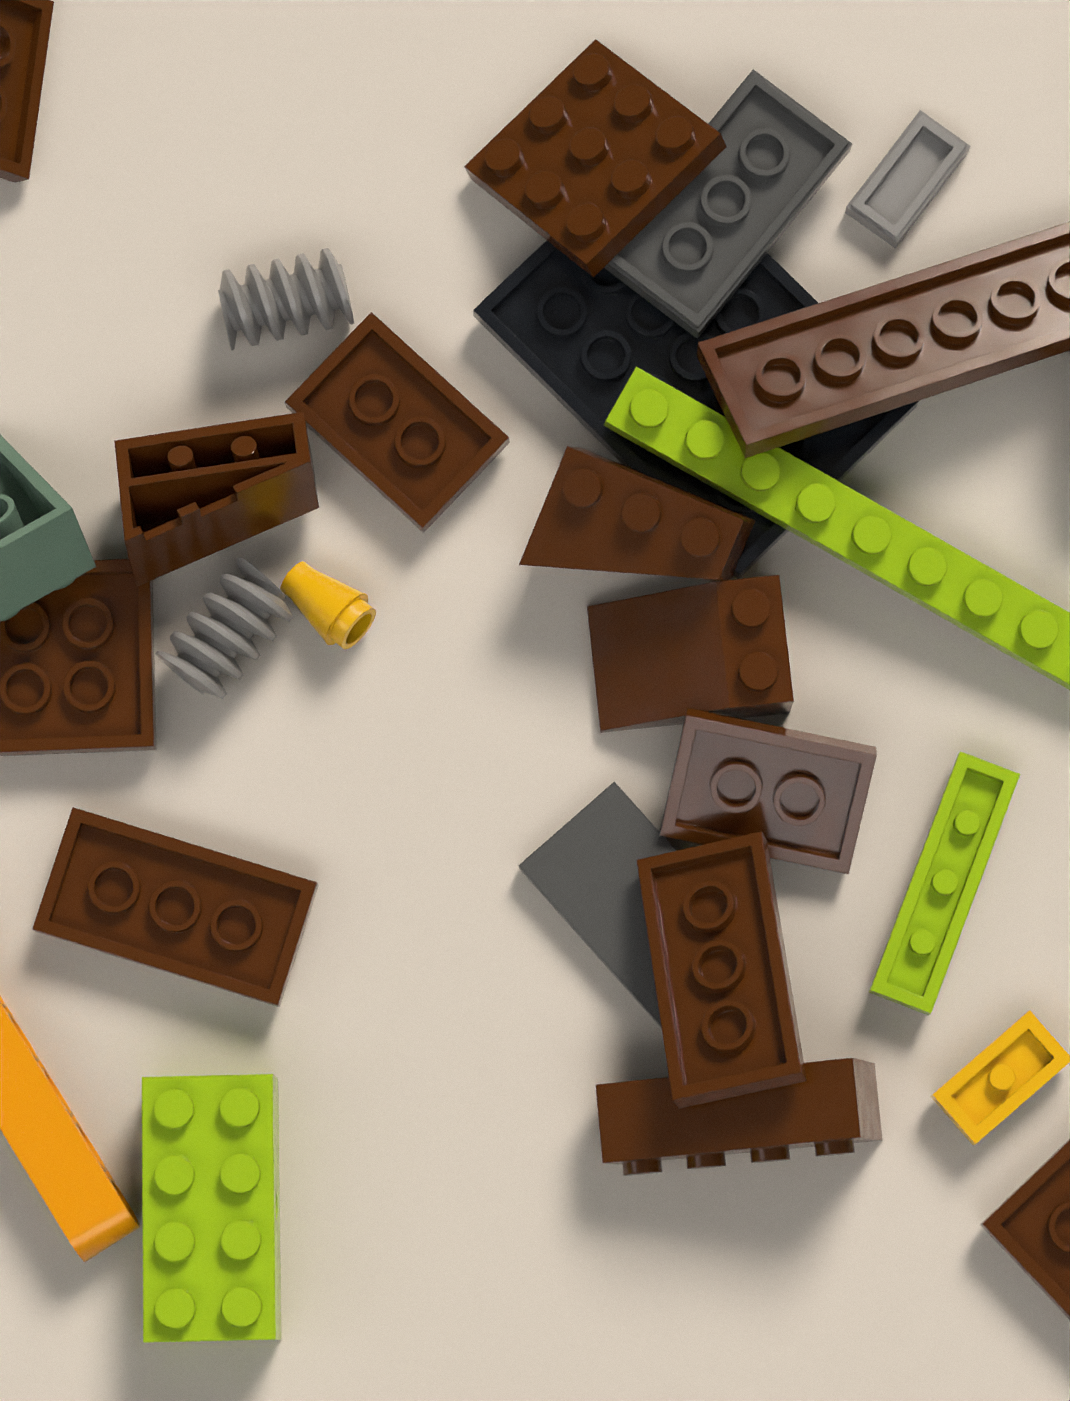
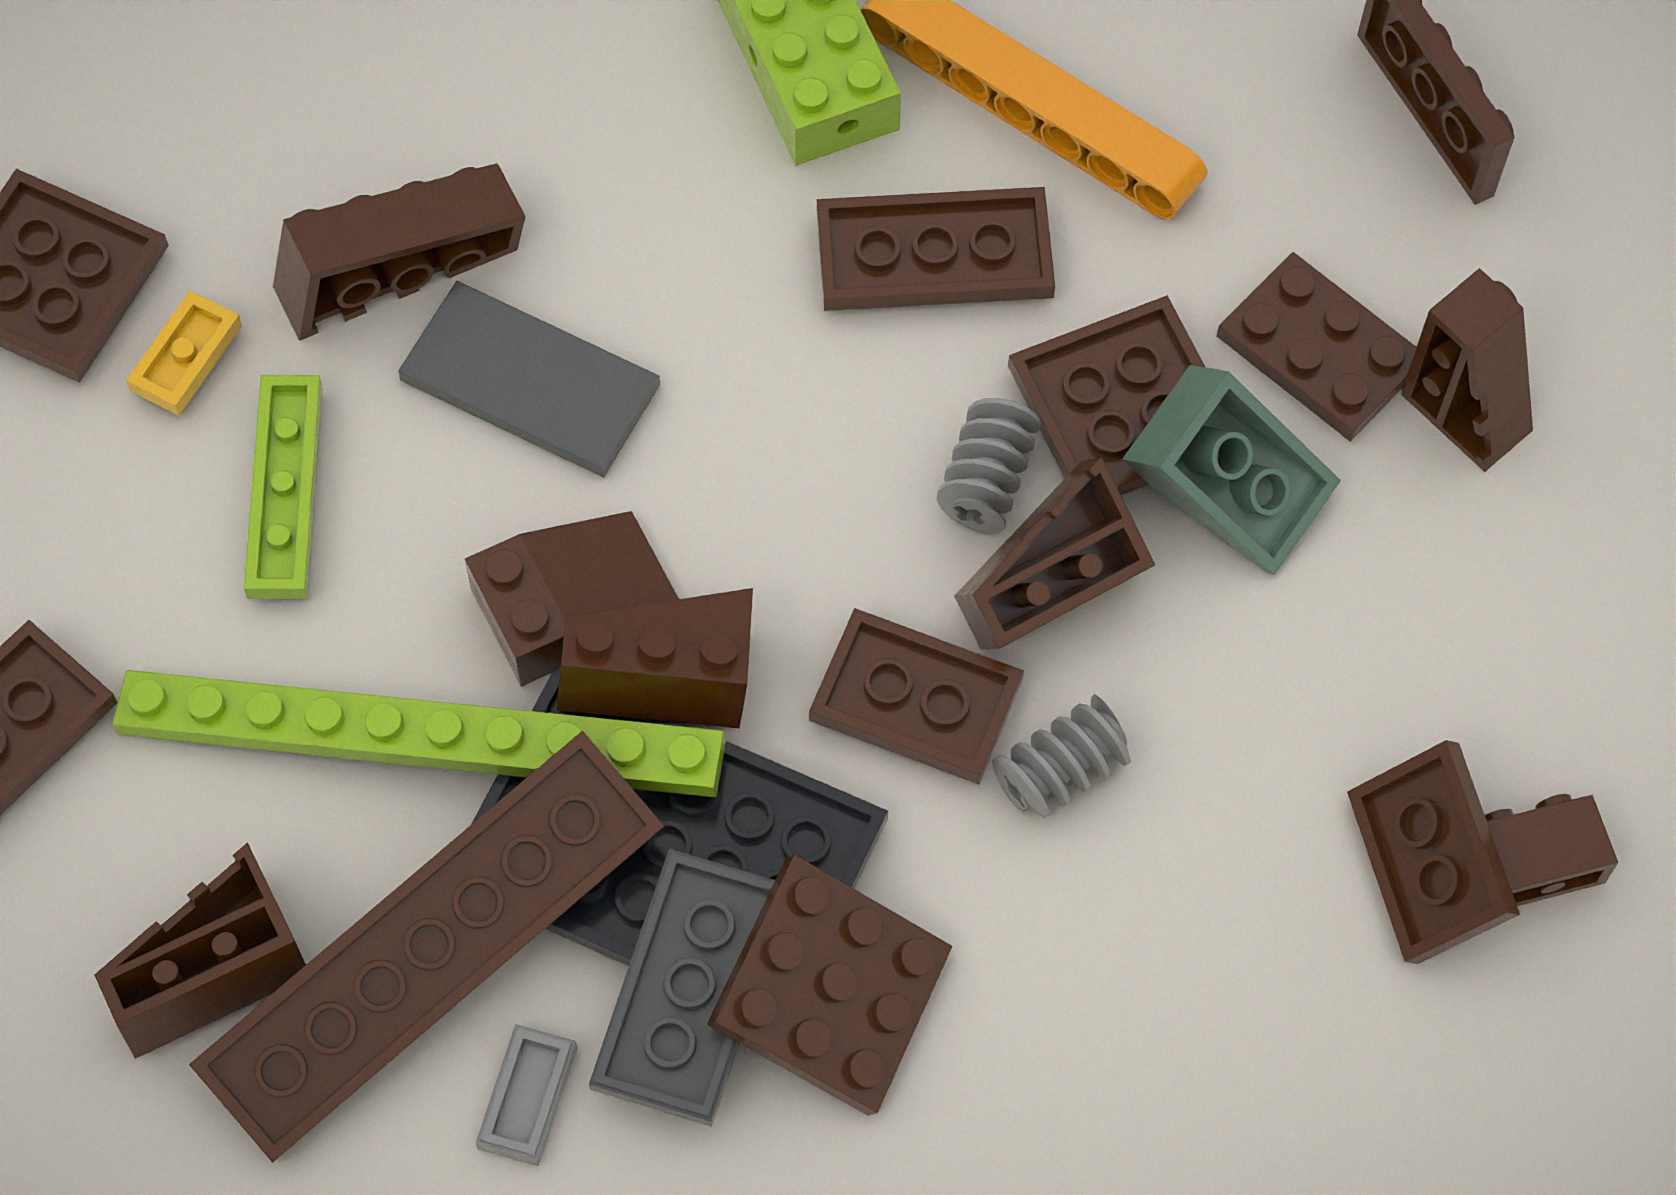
camera: 155 degrees right, 15 degrees down
(331, 607) = (911, 523): yellow cone -> none
(720, 970) = (449, 320): reddish brown plate -> none
(770, 779) = (462, 494): reddish brown plate -> none

